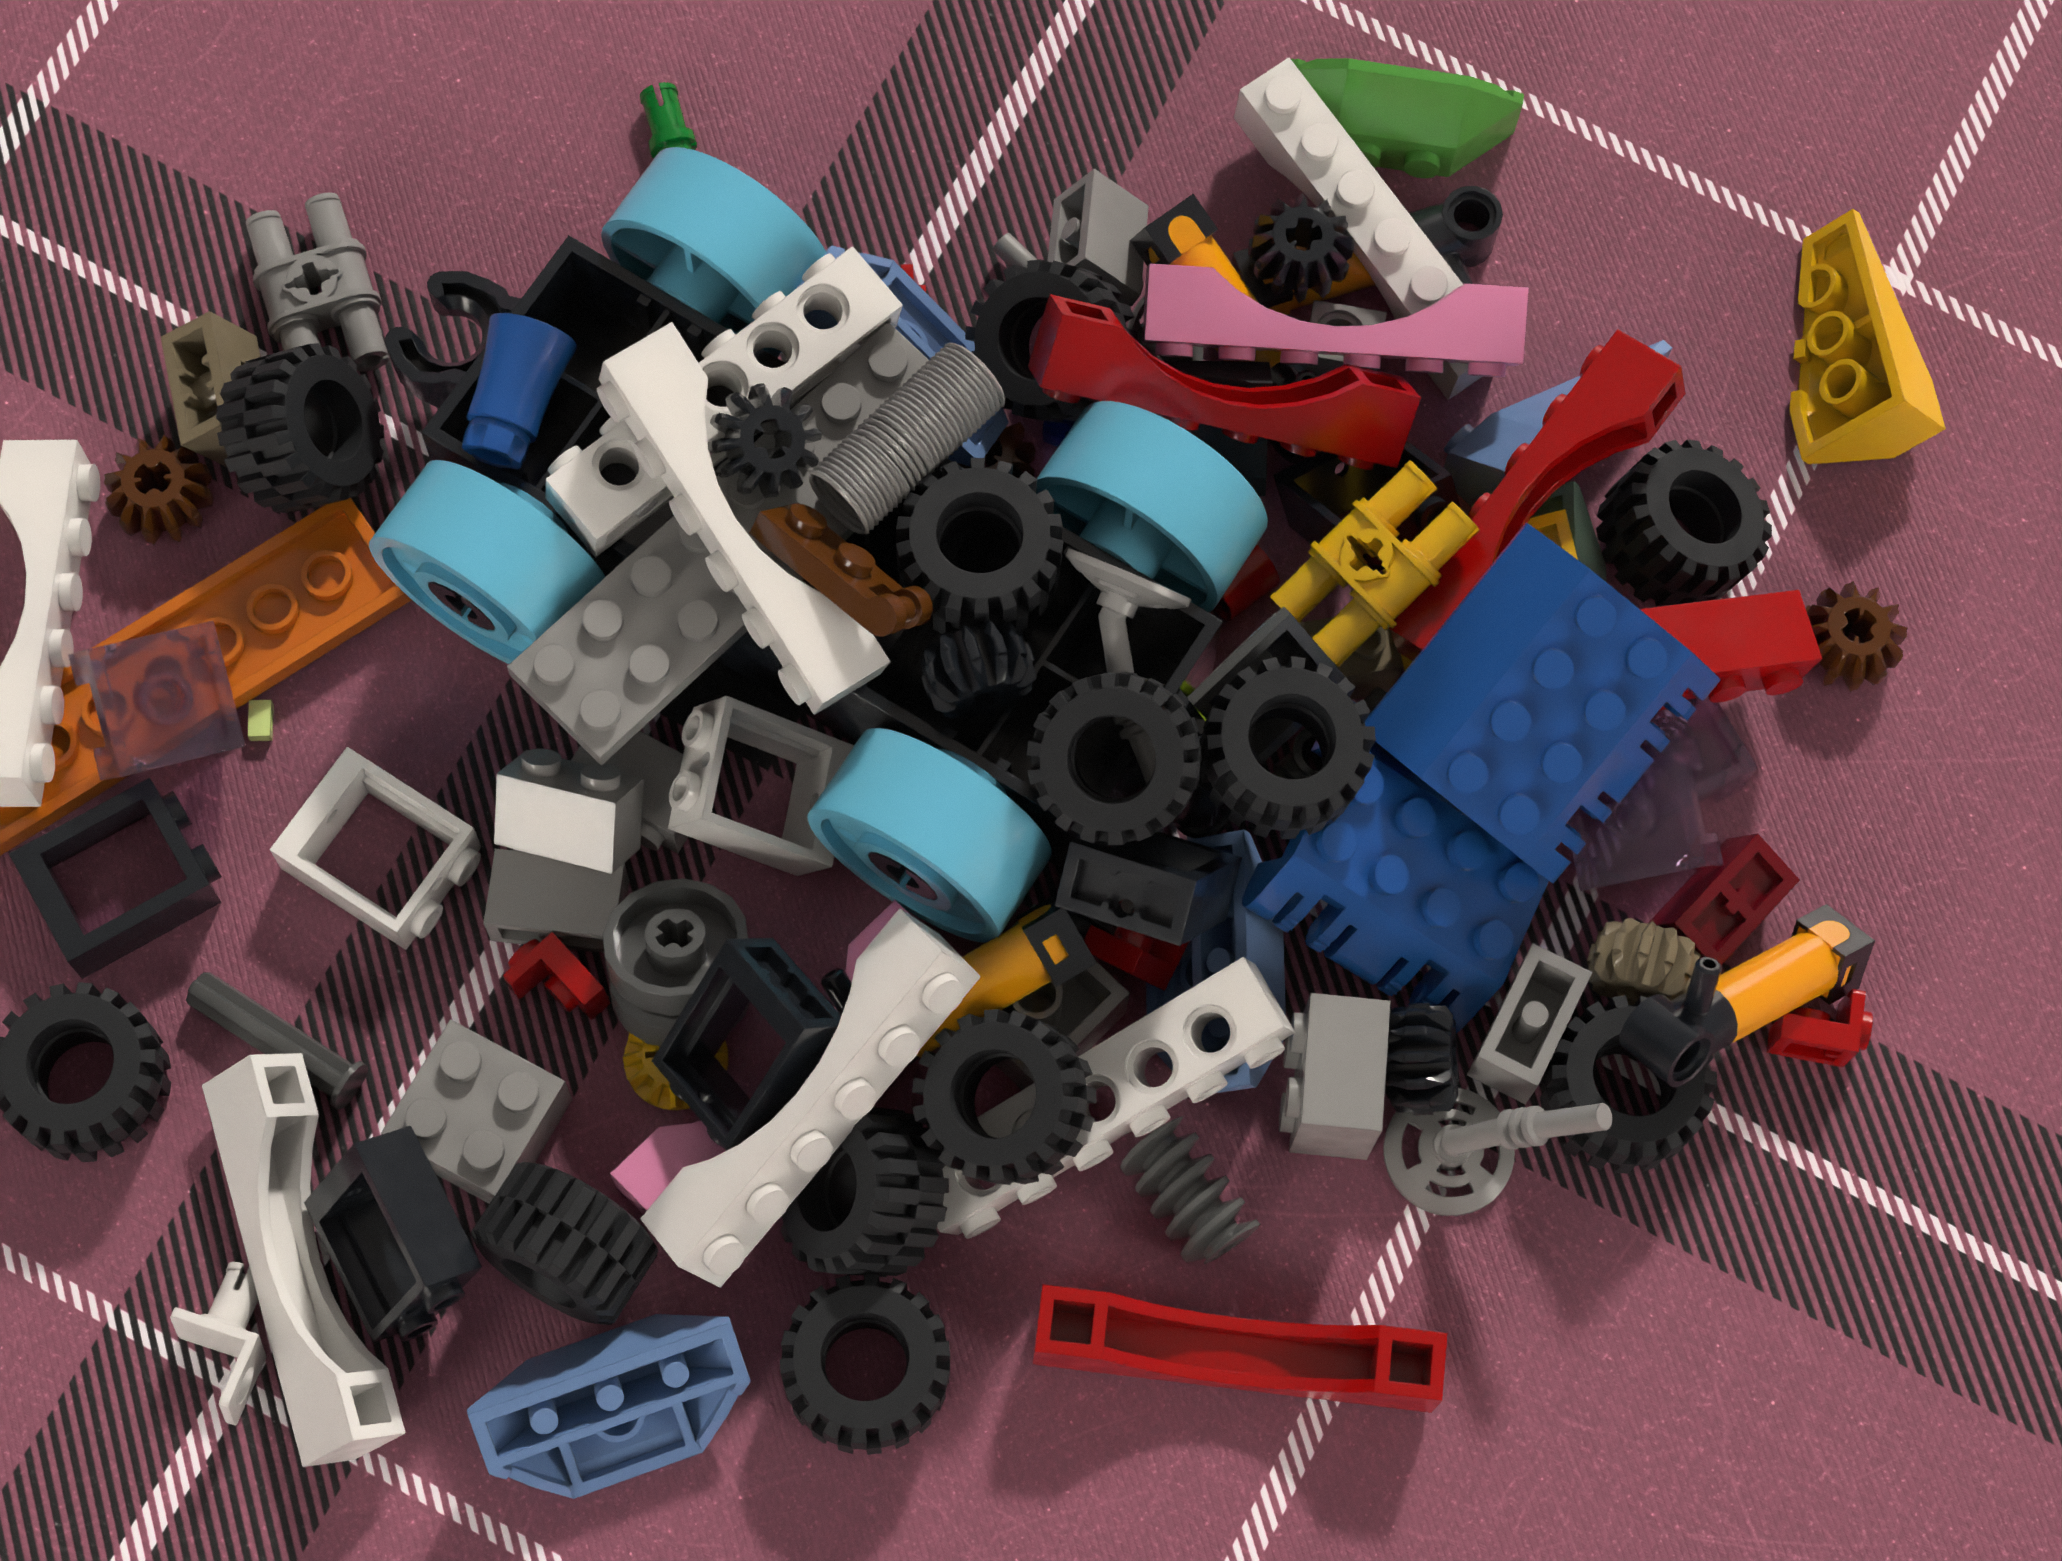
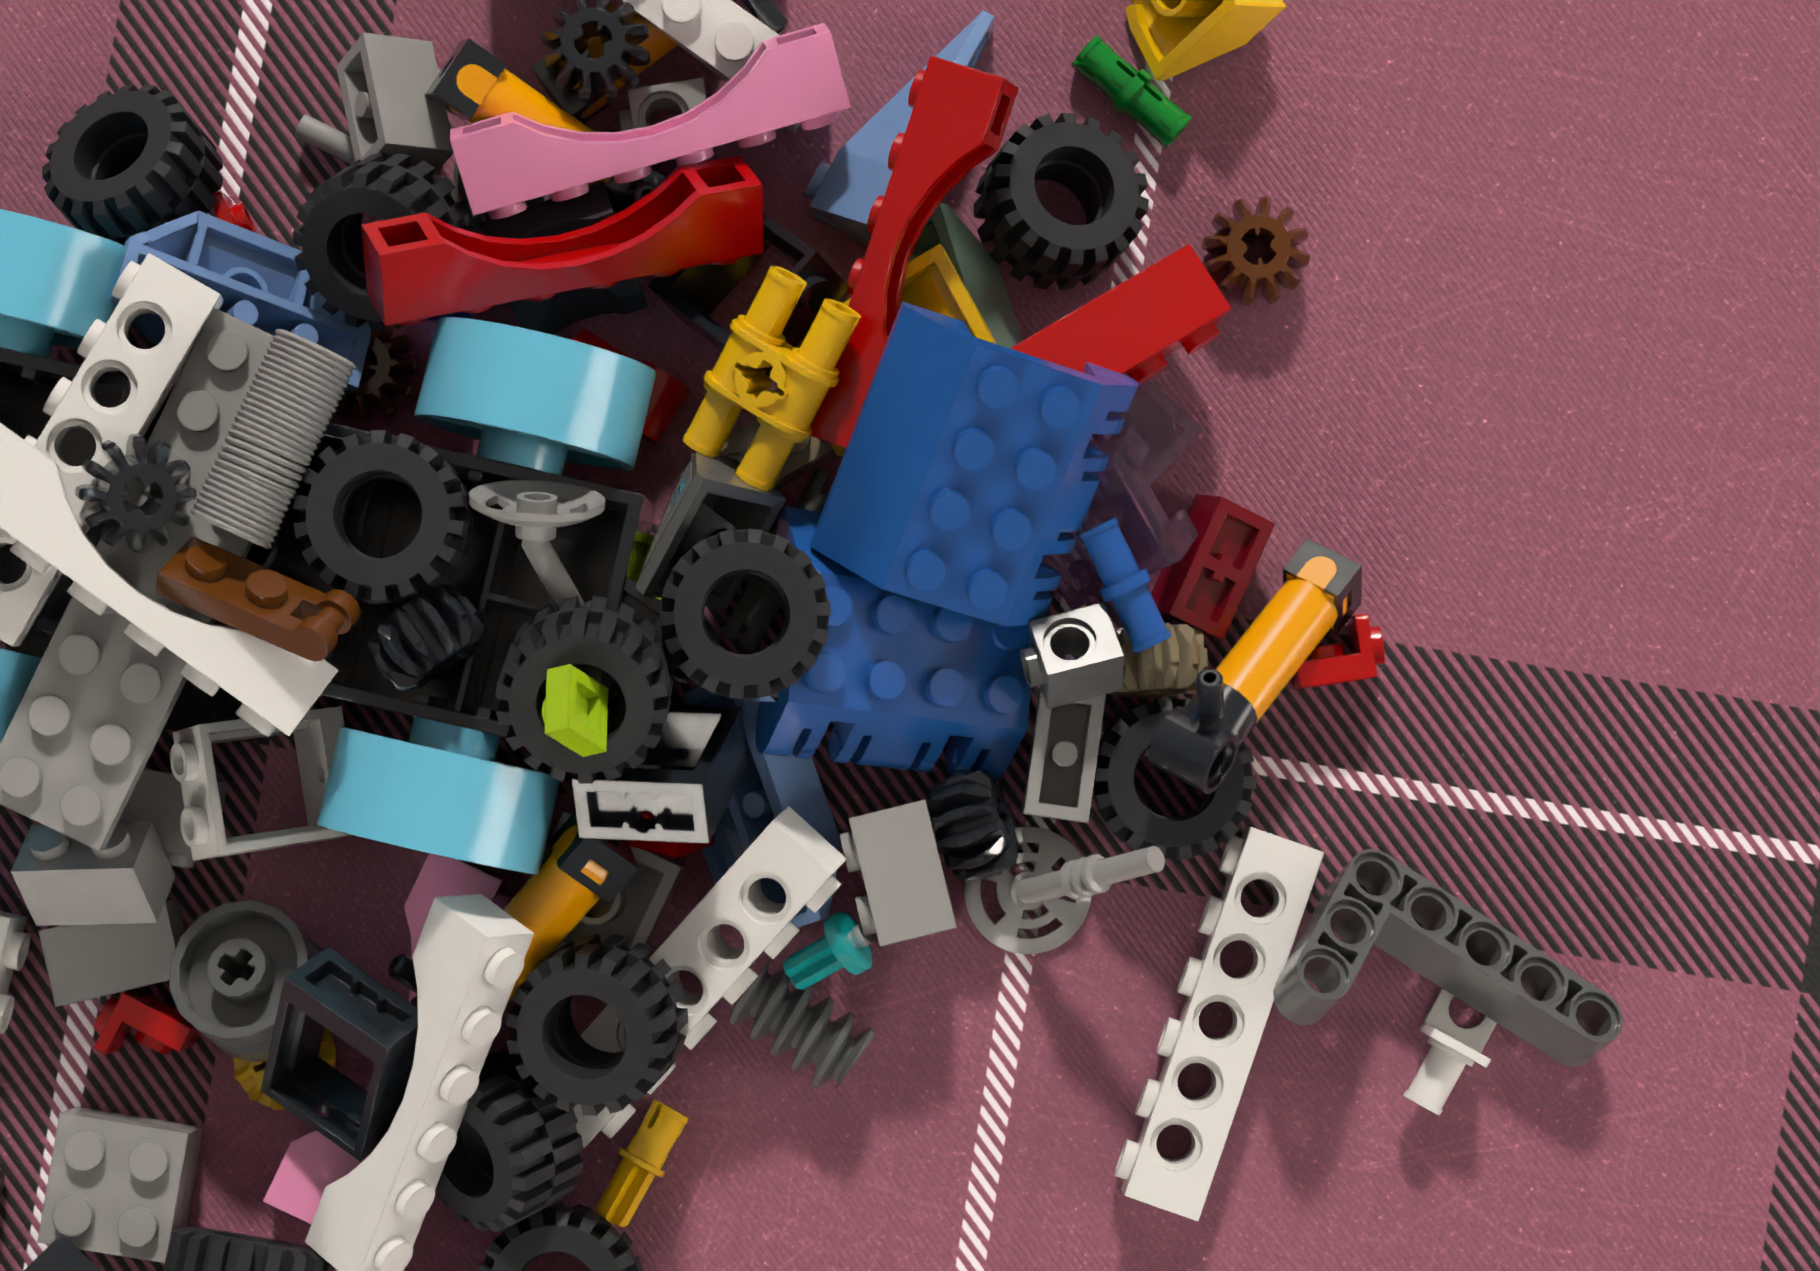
camera: 15 degrees left, 15 degrees up
(854, 201) = (131, 164): none -> black tyre
(988, 1273) = (641, 1163): none -> yellow axle
(1106, 759) = (576, 710): none -> lime plate
(1245, 1124) = (839, 948): none -> teal piece
(1283, 1358) = (891, 1155): red arch -> none
(1575, 920) = (1077, 632): none -> dark grey brick
(1646, 869) = (1125, 585): none -> blue pin
(1713, 1211) = (1184, 1182): none -> white brick
(1775, 463) = (1131, 91): none -> green pin
(1828, 1439) = (1449, 1054): none -> white bracket
(1857, 1344) = (1442, 956): none -> dark grey beam

